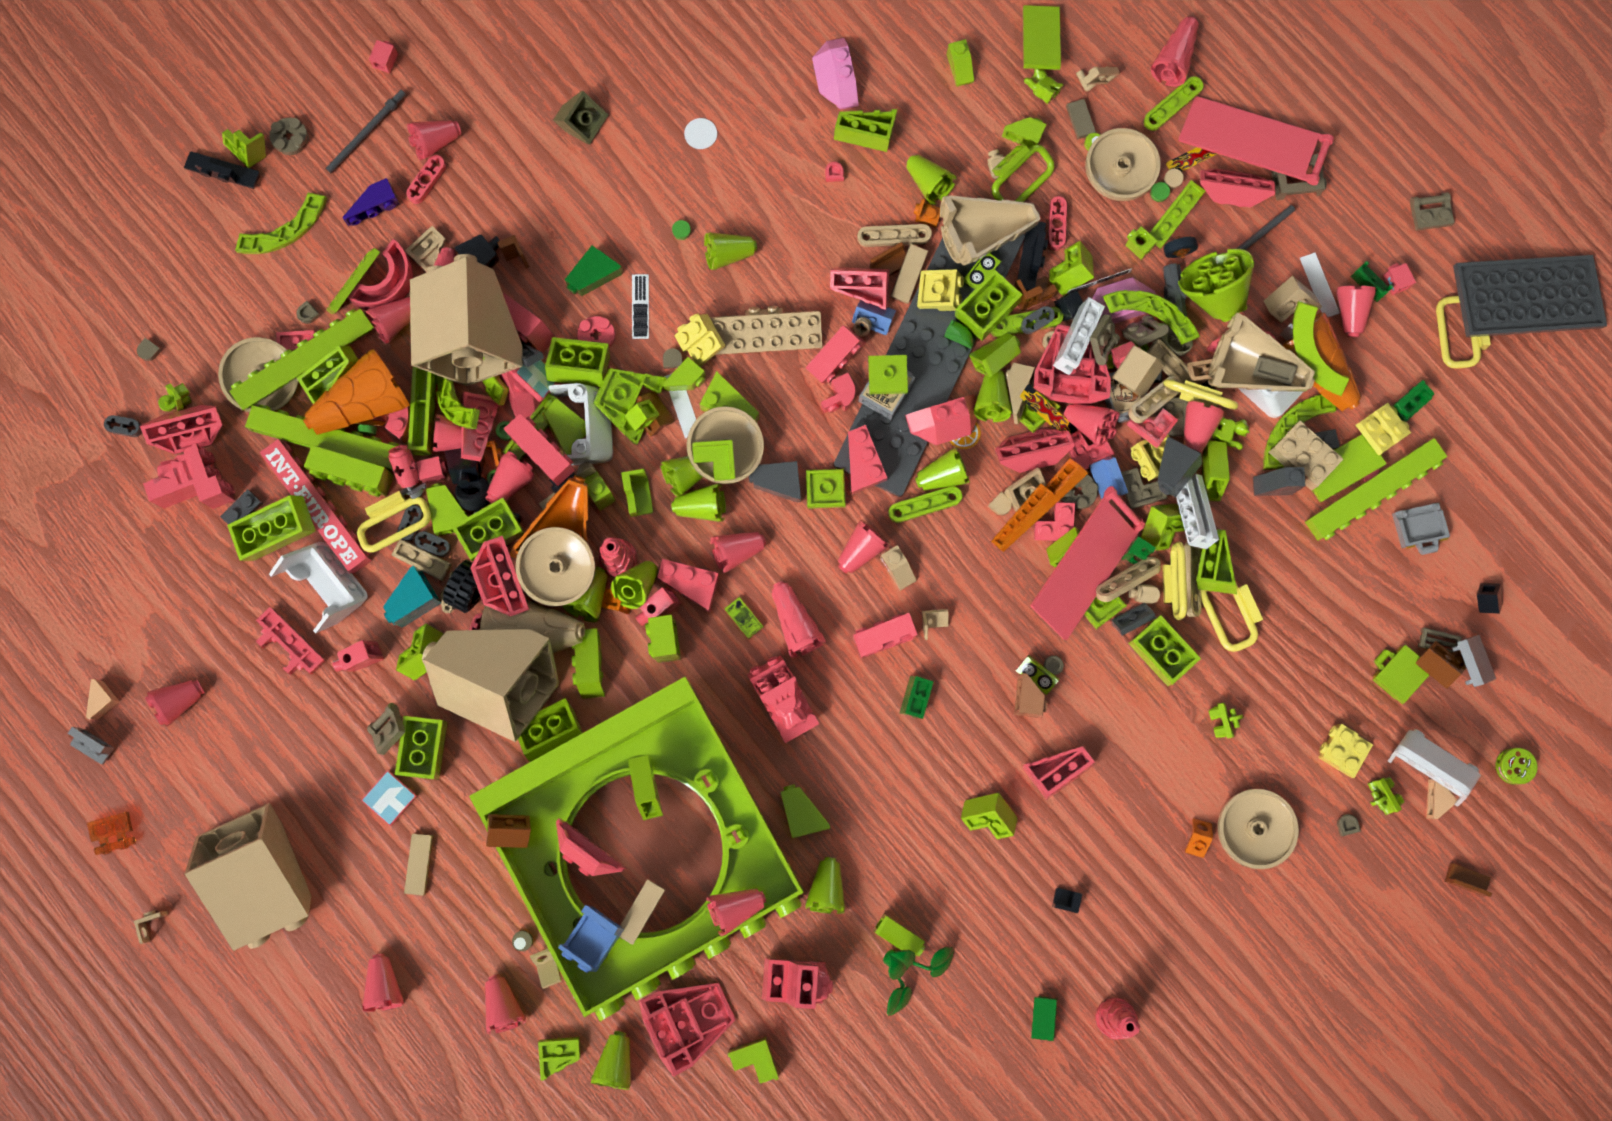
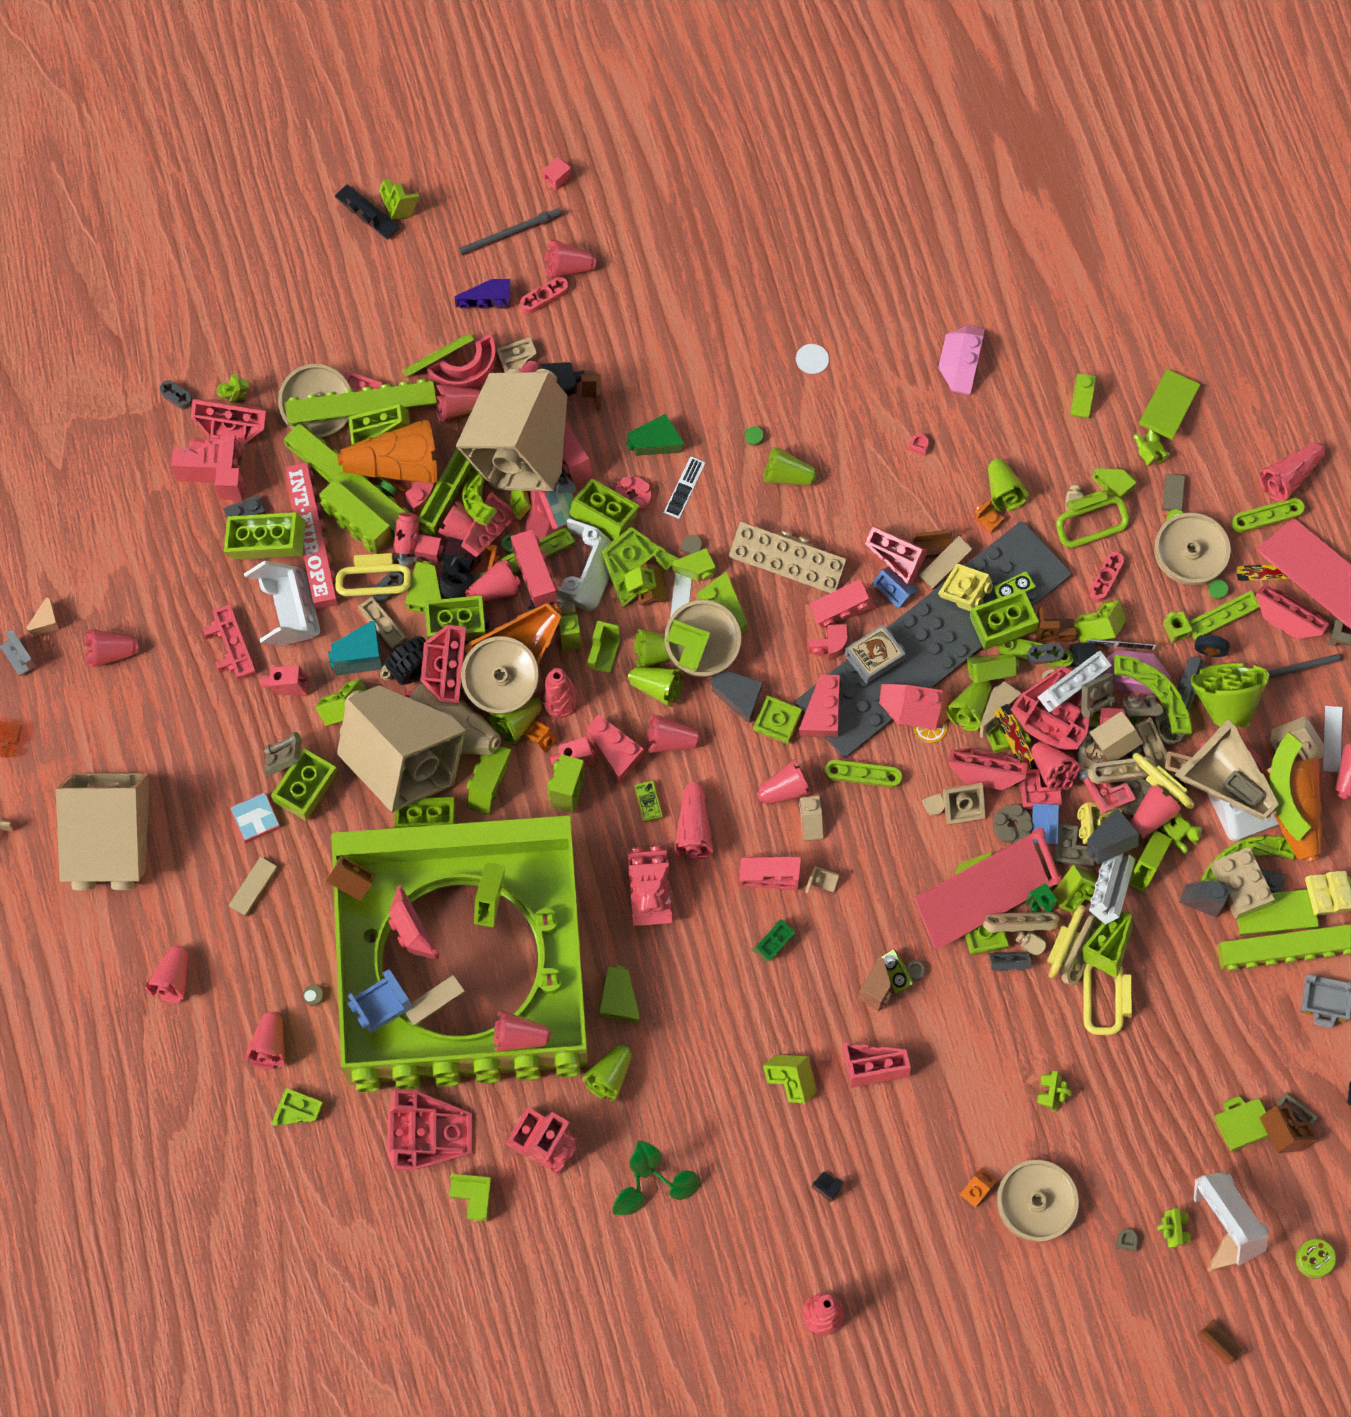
camera: 25 degrees right, 10 degrees down
(147, 350) = (228, 339): dark tan tile -> none
(281, 129) = (440, 197): dark tan plate -> none
(287, 233) = (397, 290): lime tile -> none
(307, 313) = (382, 366): dark tan tile -> none
(434, 540) = (402, 610): dark grey beam -> none
(546, 968) = (324, 1028): tan bracket -> none
(564, 424) = (566, 558): lime slope -> none
(581, 117) = (709, 299): olive slope -> none
(614, 1063) = (343, 1138): lime cone -> none
(635, 584) = (562, 725): lime cone -> none
(699, 338) = (724, 537): light yellow plate -> none
(857, 328) = (884, 589): tan bush -> none
(866, 129) = (965, 417): lime wedge -> none
(888, 374) = (880, 640): lime plate -> none
(893, 235) = (944, 520): tan plate -> none
(899, 935) = (650, 1132): lime slope -> none
(943, 472) = (894, 751): lime cone -> none
(959, 333) = (966, 634): bright green brick -> none
(983, 225) = (1033, 546): tan cone -> none
(1032, 255) = (1069, 592): black bracket -> none
(1039, 503) = (969, 817): orange slope -> none
(1044, 1018) = (756, 1281): green hinge -> none
(1062, 523) = (984, 844): coral plate -> none
(1096, 76) = (1206, 460): tan plate -> none
(1164, 650) = (1024, 1000): lime brick -> none
(1173, 178) = (1236, 582): tan tile -> none
(1344, 750) = (1156, 1170): light yellow plate -> none
(1476, 661) = (1318, 1140): light grey piece -> none

